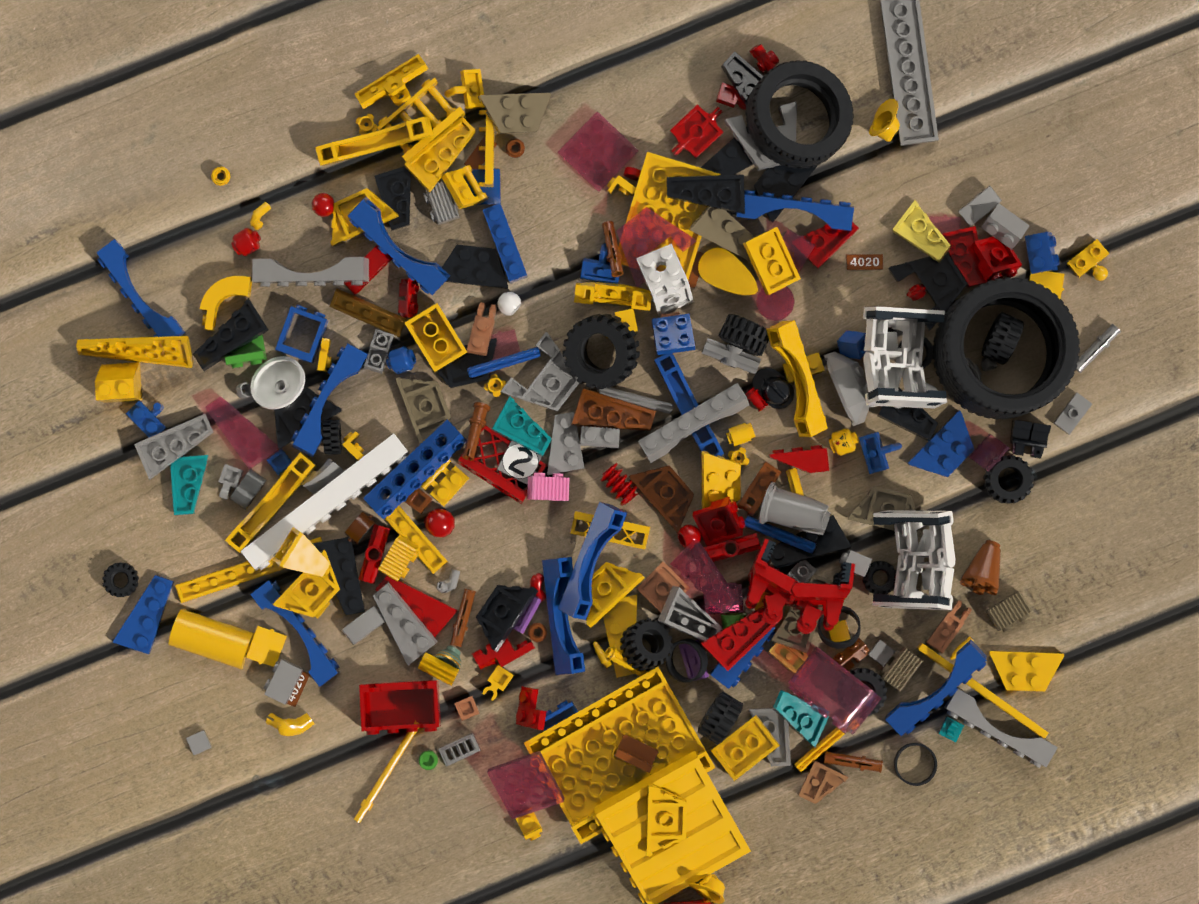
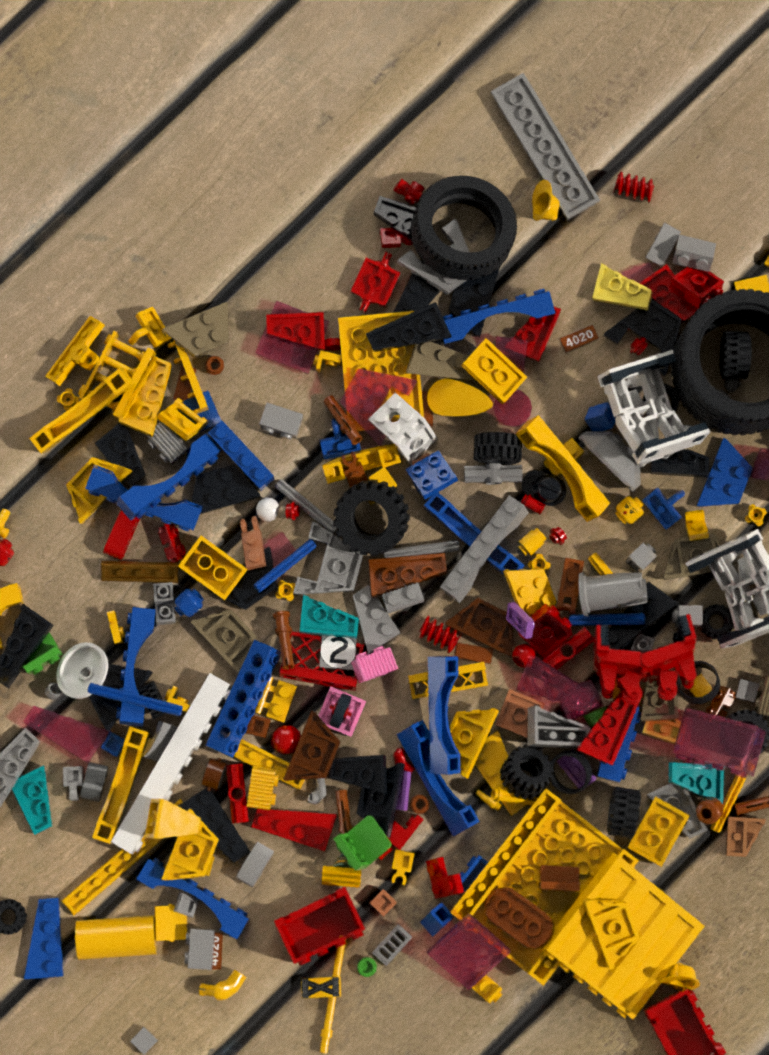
camera: 25 degrees left, 5 degrees down
(286, 636) = (186, 904): none -> light grey tile
(300, 310) = (86, 636): blue window -> none
(314, 430) = (135, 699): none -> blue axle
(323, 204) = (57, 489): red piece -> none
(347, 270) = (107, 538): light grey arch -> none
(378, 761) = (321, 987): none -> tile
(393, 246) = (139, 498): none -> blue arch
(404, 625) = (295, 850): light grey wing -> none
(459, 545) = (313, 752): none -> reddish brown wing
(469, 648) = (363, 843): none -> bright green bracket
(495, 580) = (361, 771): none -> black wing
(499, 517) = (341, 711): none -> bright pink plate
(509, 744) = (437, 919): none -> blue brick
(531, 314) = (292, 511): none -> red plate
(546, 314) = (305, 505): none -> light grey axle
(555, 225) = (281, 421): none -> light grey brick
(583, 774) = (519, 918): none -> dark orange tile
(603, 300) = (354, 471): none -> dark orange plate
(606, 145) = (298, 328): none -> red wing
(644, 514) = (474, 653): none -> dark orange sticker
(698, 503) = (520, 620): none -> medium lavender plate
(767, 438) = (557, 536): none -> red plate
(800, 748) = (709, 810): none -> dark orange head
(808, 460) = (604, 541): red slope -> none
(836, 490) = (641, 557): none -> light grey slope
(899, 481) = (696, 525): none -> yellow bracket
(963, 494) = (761, 512): none -> yellow plate
(976, 140) = (634, 186): none -> red piece
(1042, 252) = (737, 263): blue bracket -> none

